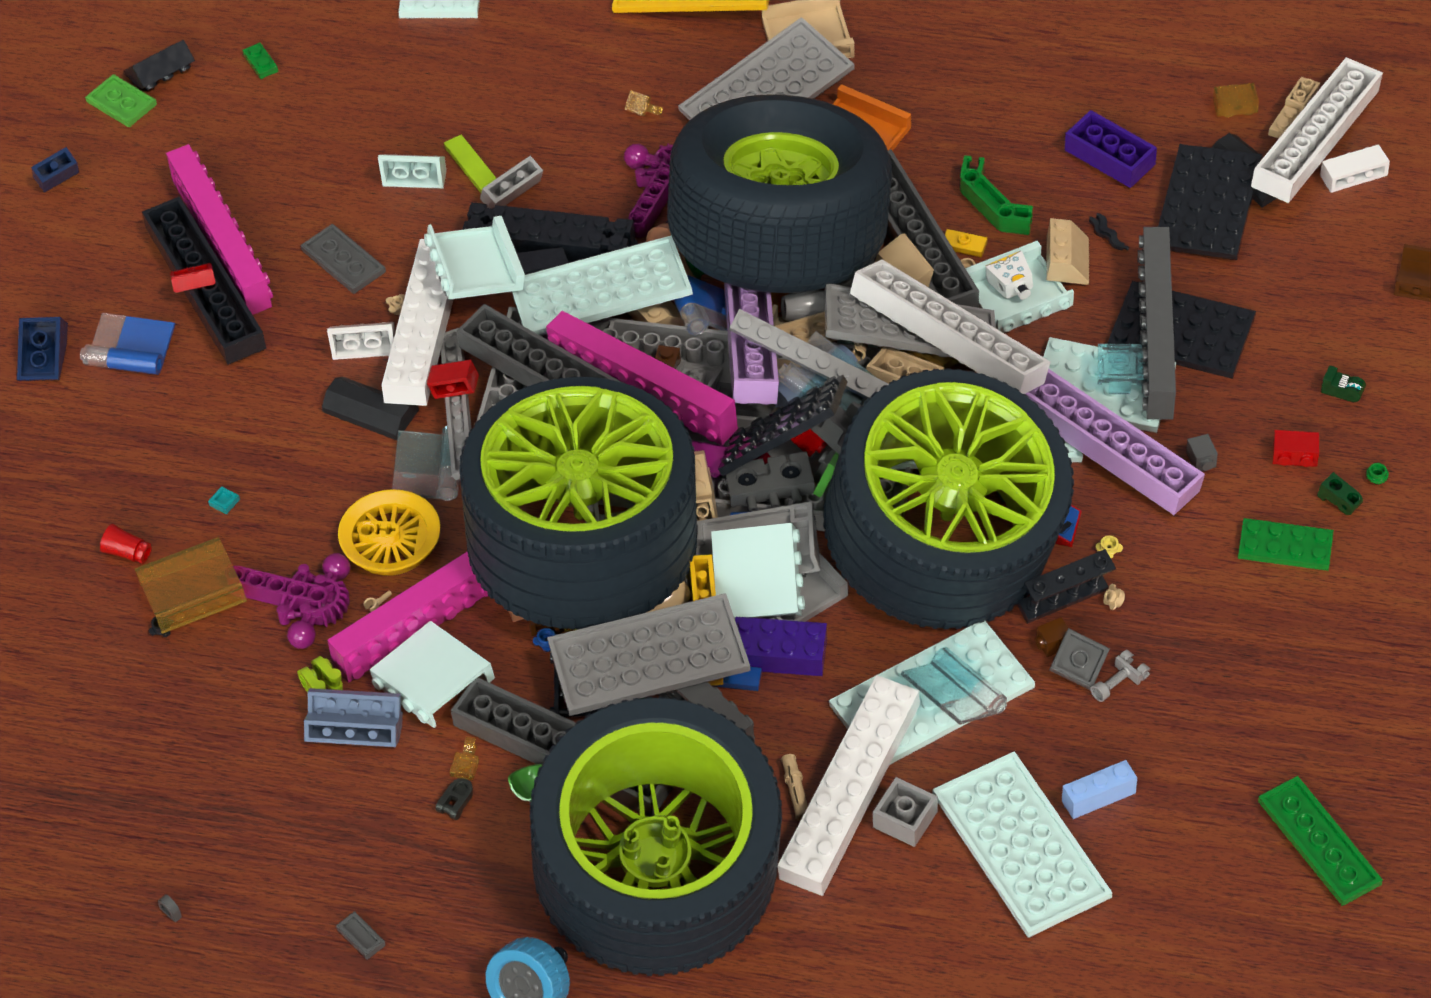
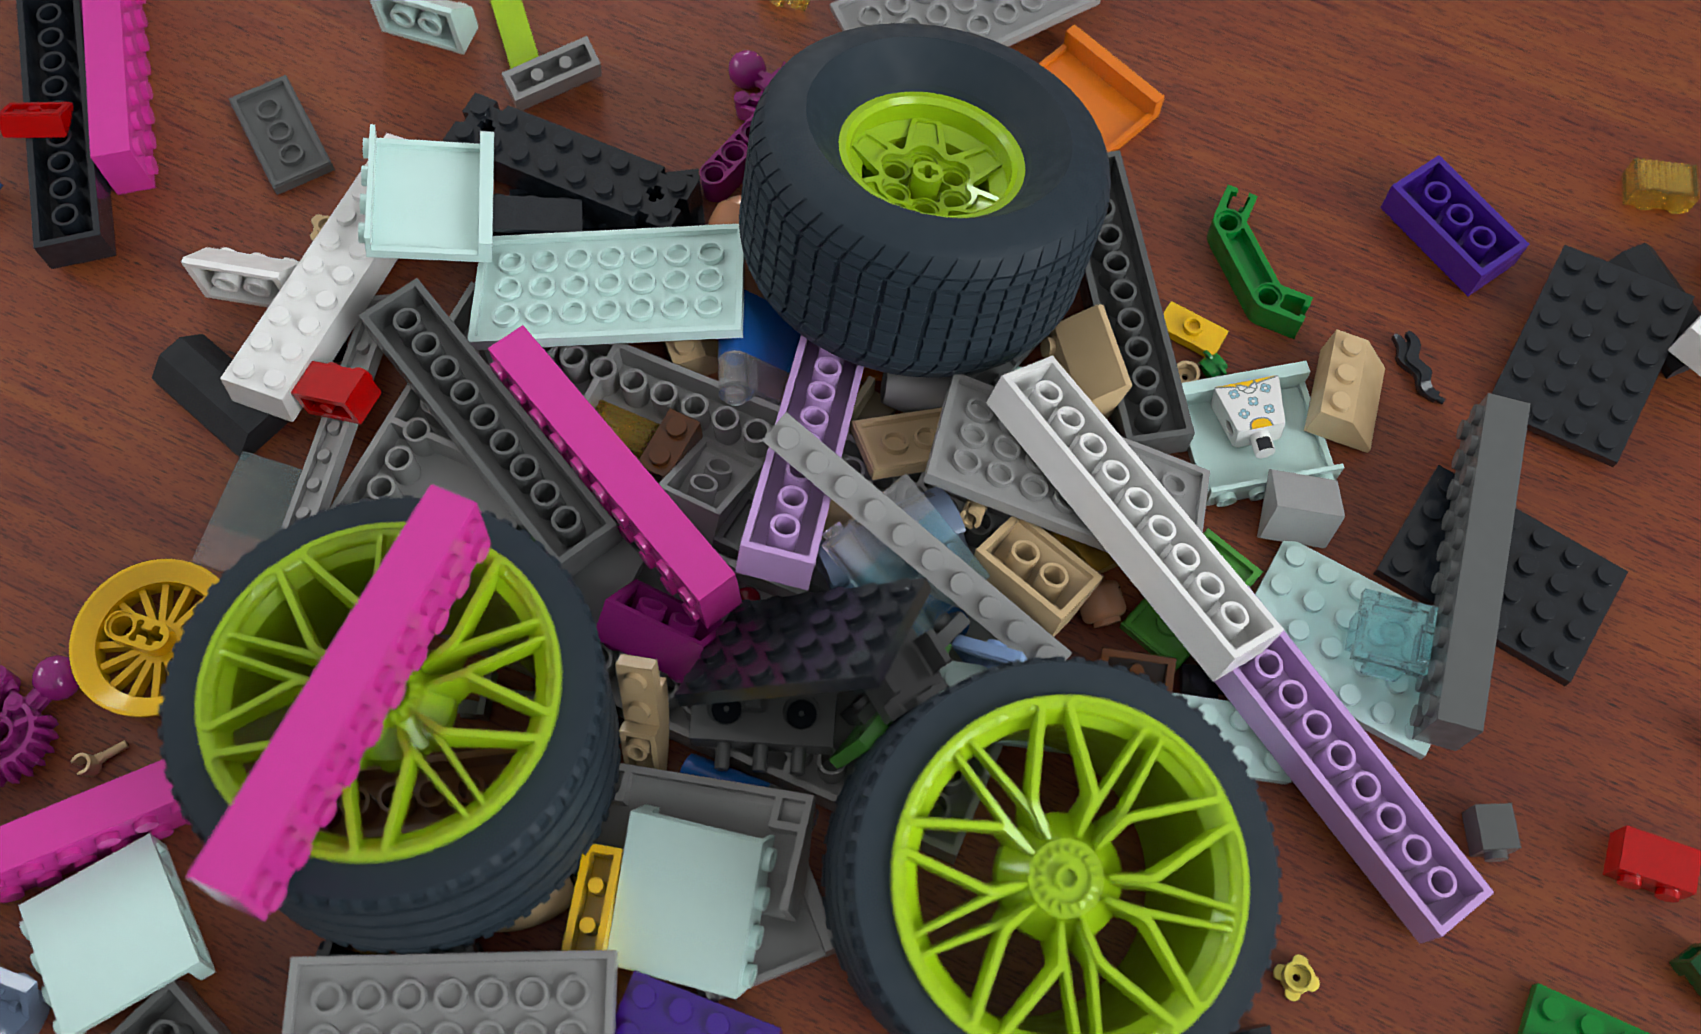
camera: 10 degrees right, 15 degrees up
(570, 454) = (343, 707): none -> dark pink brick
(981, 256) = (1212, 365): none -> green plate
(1053, 319) = (1300, 509): none -> light grey slope

